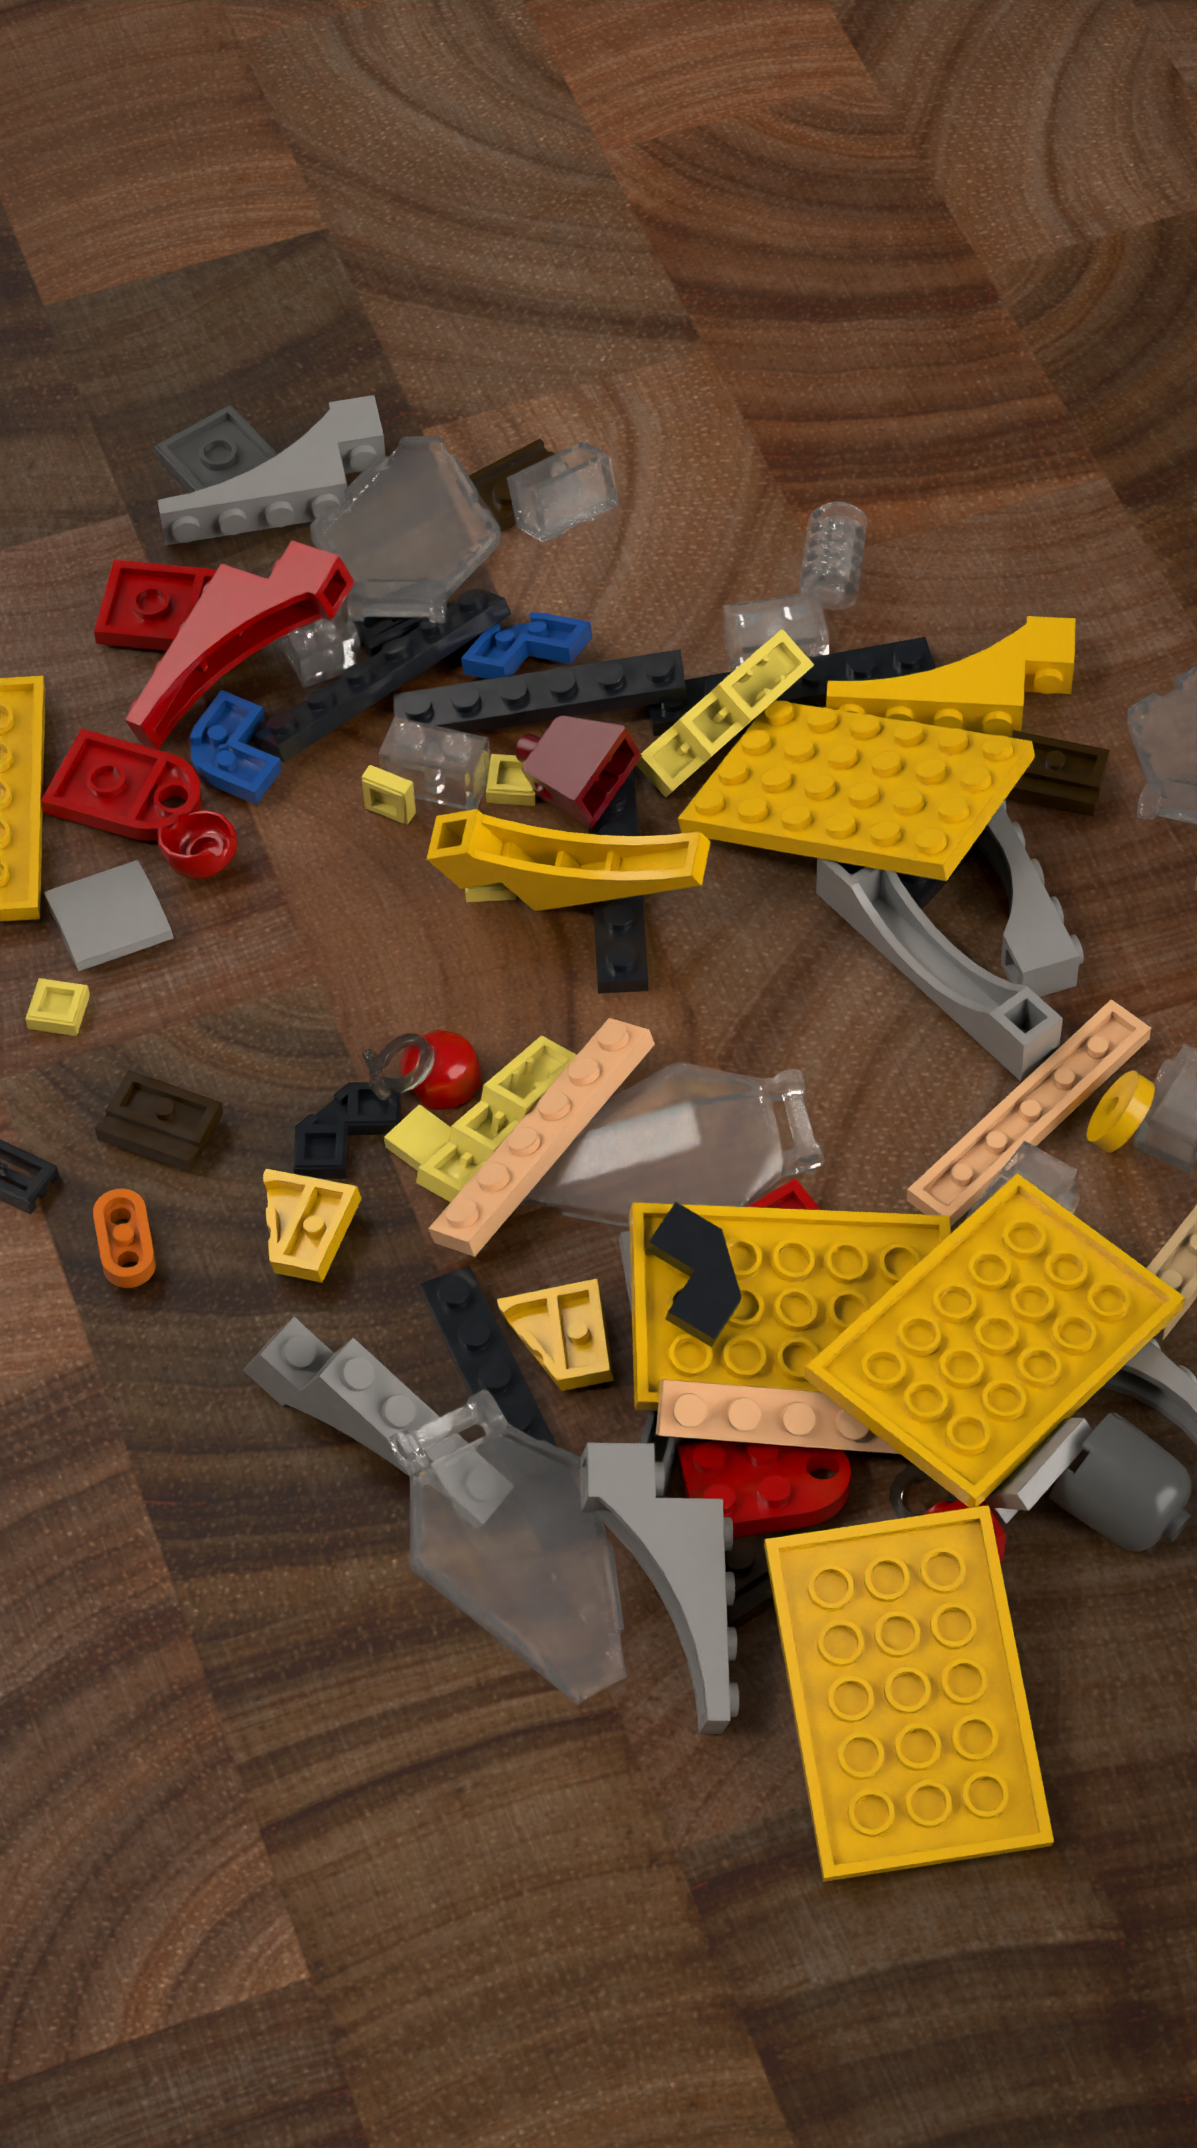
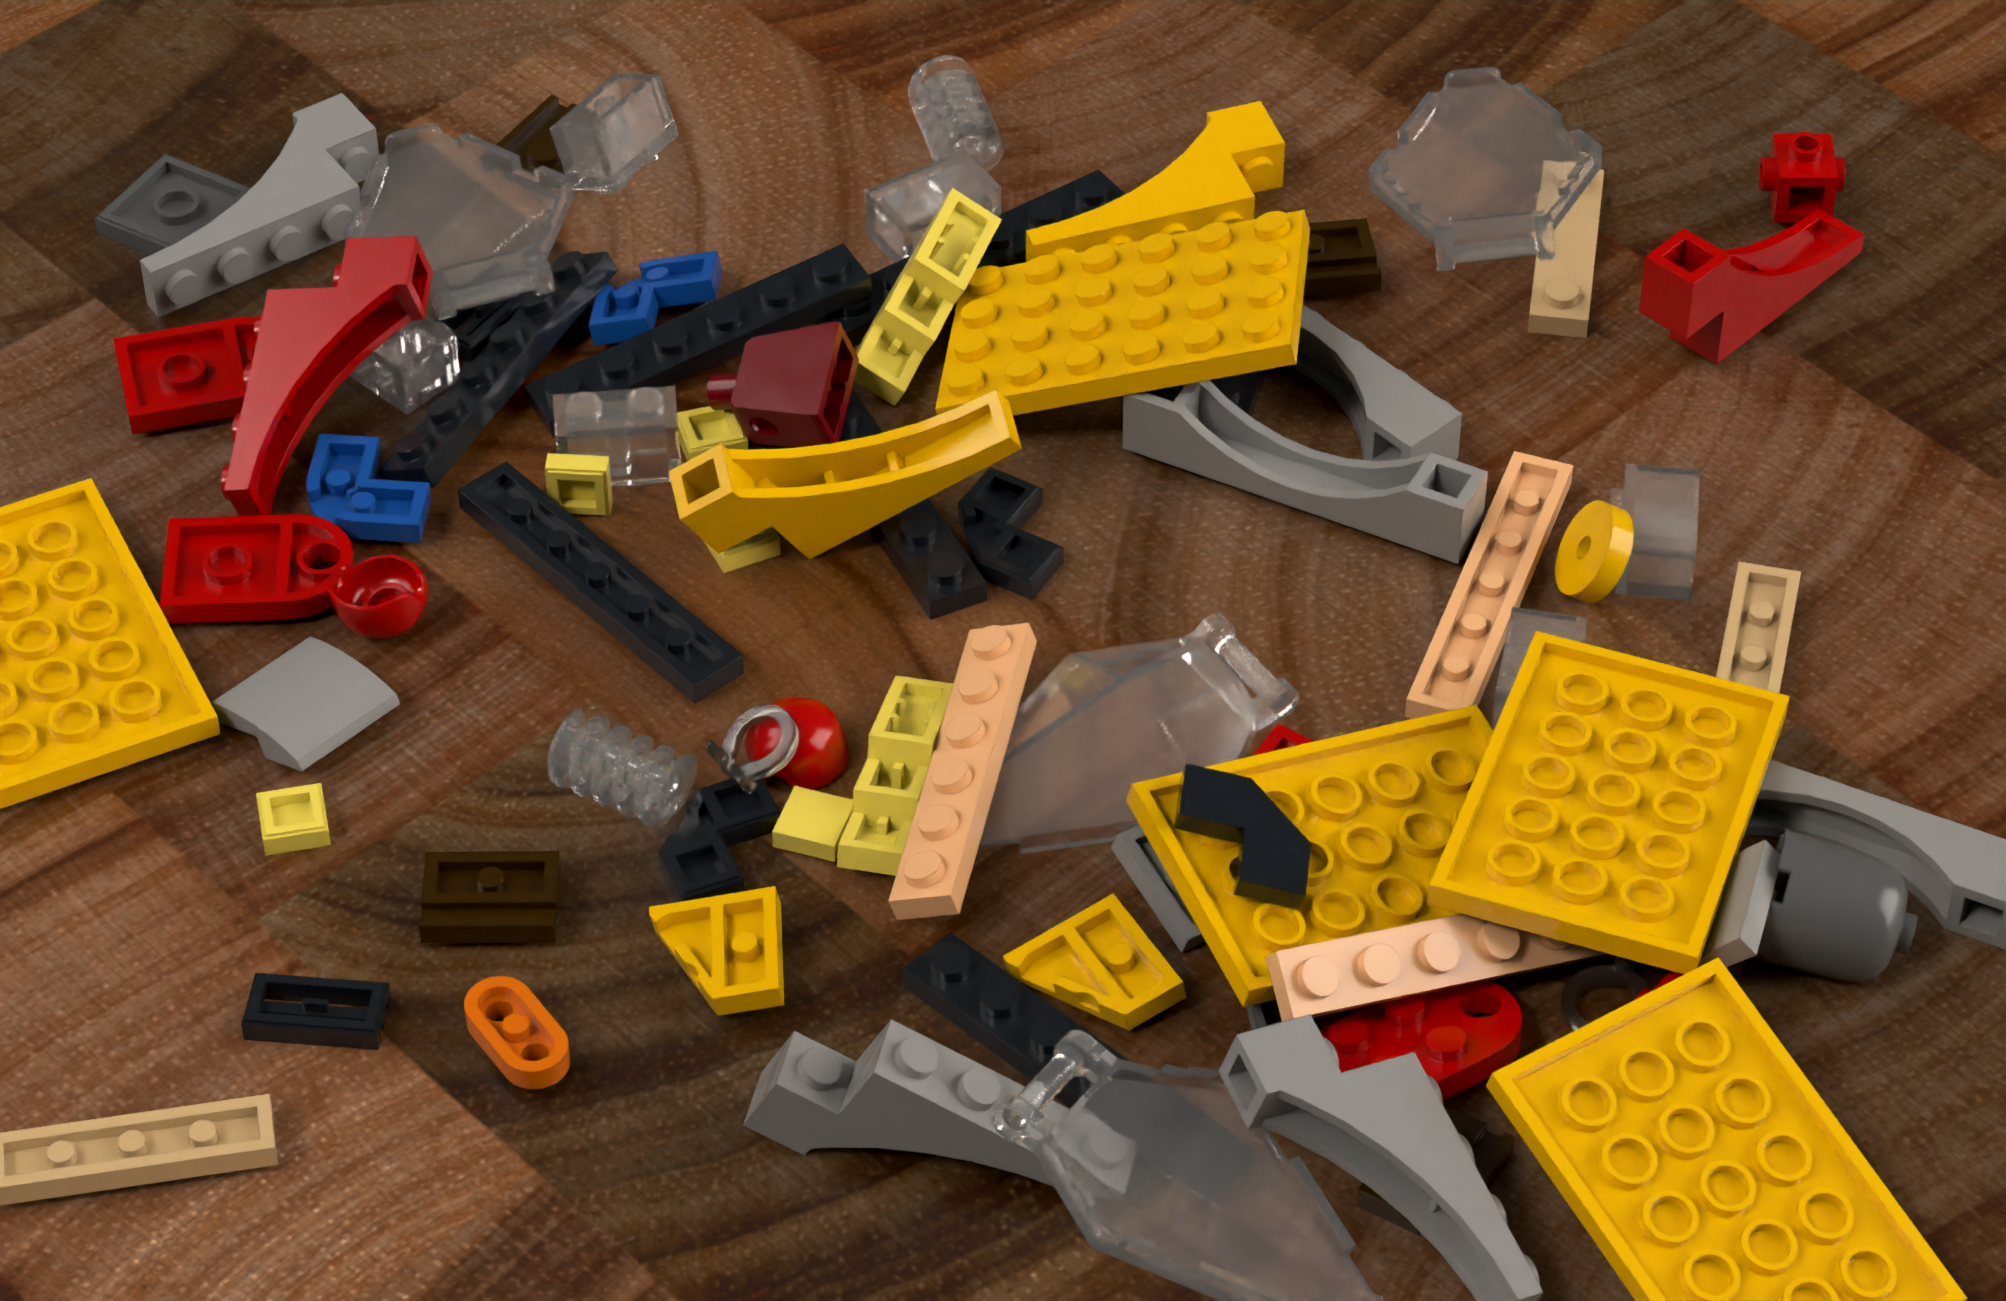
camera: 25 degrees left, 10 degrees down
(297, 1048) = (619, 769): none -> clear piece
(365, 883) = (601, 582): none -> black plate
(678, 953) = (999, 548): none -> black tile

